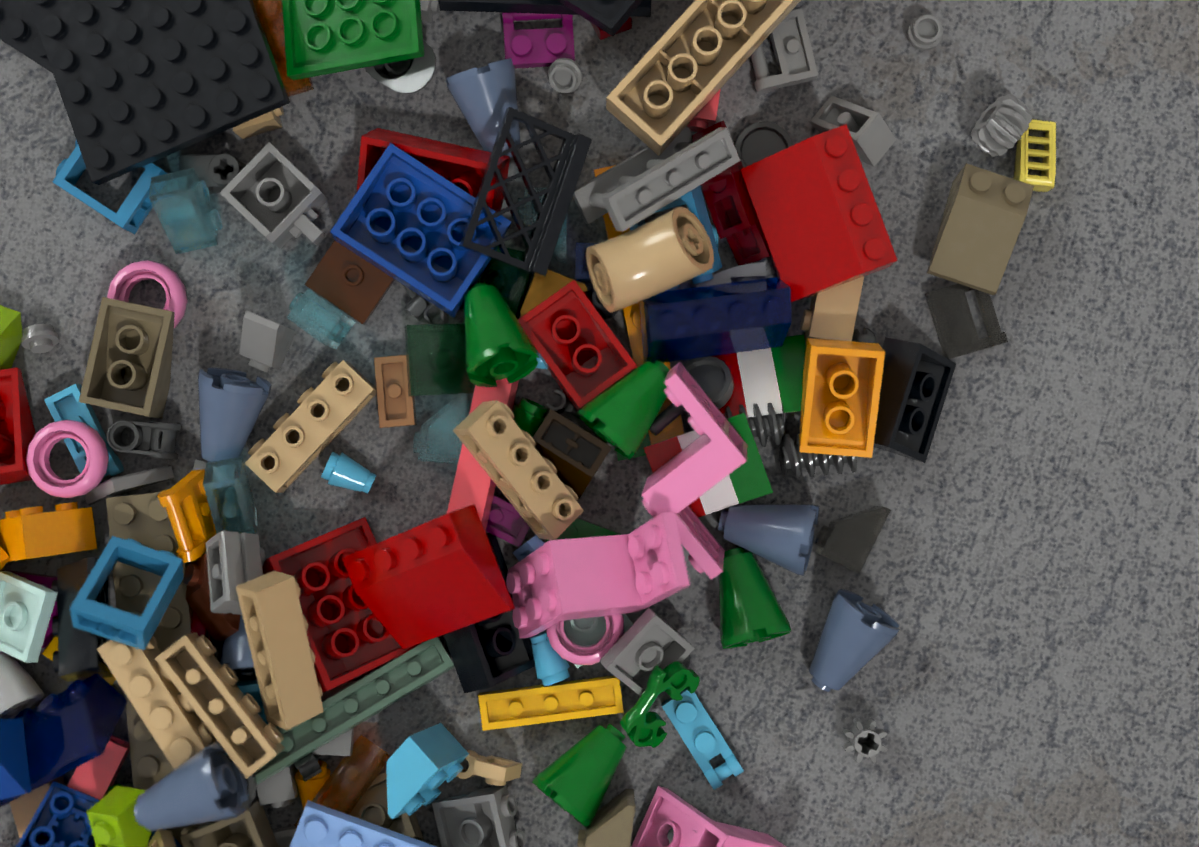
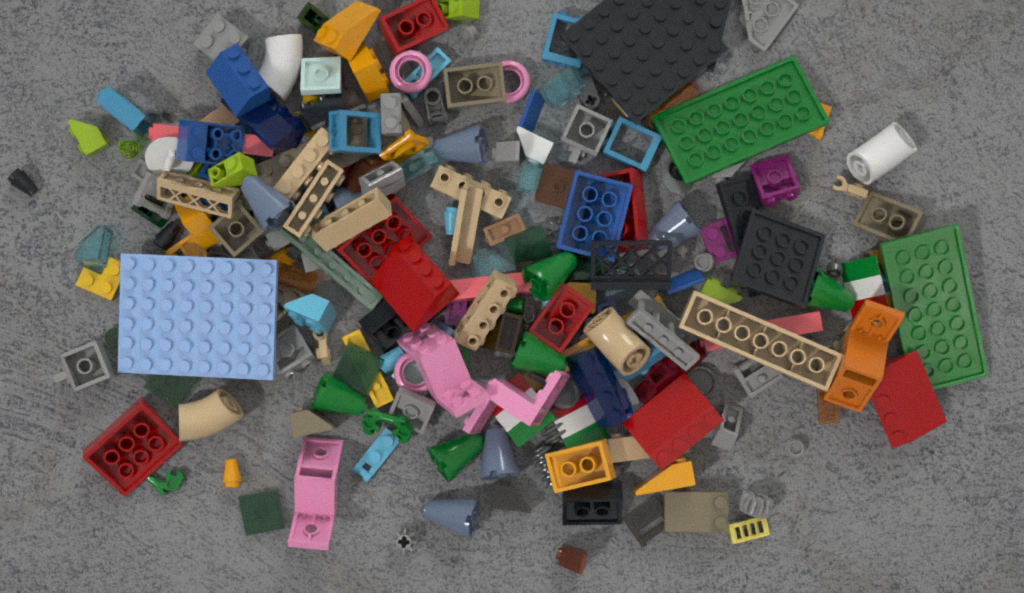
camera: 65 degrees right, 0 degrees up
(122, 517) = (391, 114): none -> light grey brick
(211, 278) = (531, 111): none -> blue slope
(268, 292) = (534, 147): none -> white slope
(346, 150) = (656, 138): none -> dark azure window
(361, 452) = (466, 224): none -> tan fence
(545, 720) = (358, 368): none -> clear green plate
(585, 116) = (685, 280): none -> blue slope
(613, 71) = (714, 290): none -> lime slope
(913, 240) = (674, 476): none -> light orange slope
(990, 464) = (572, 558): none -> copper slope

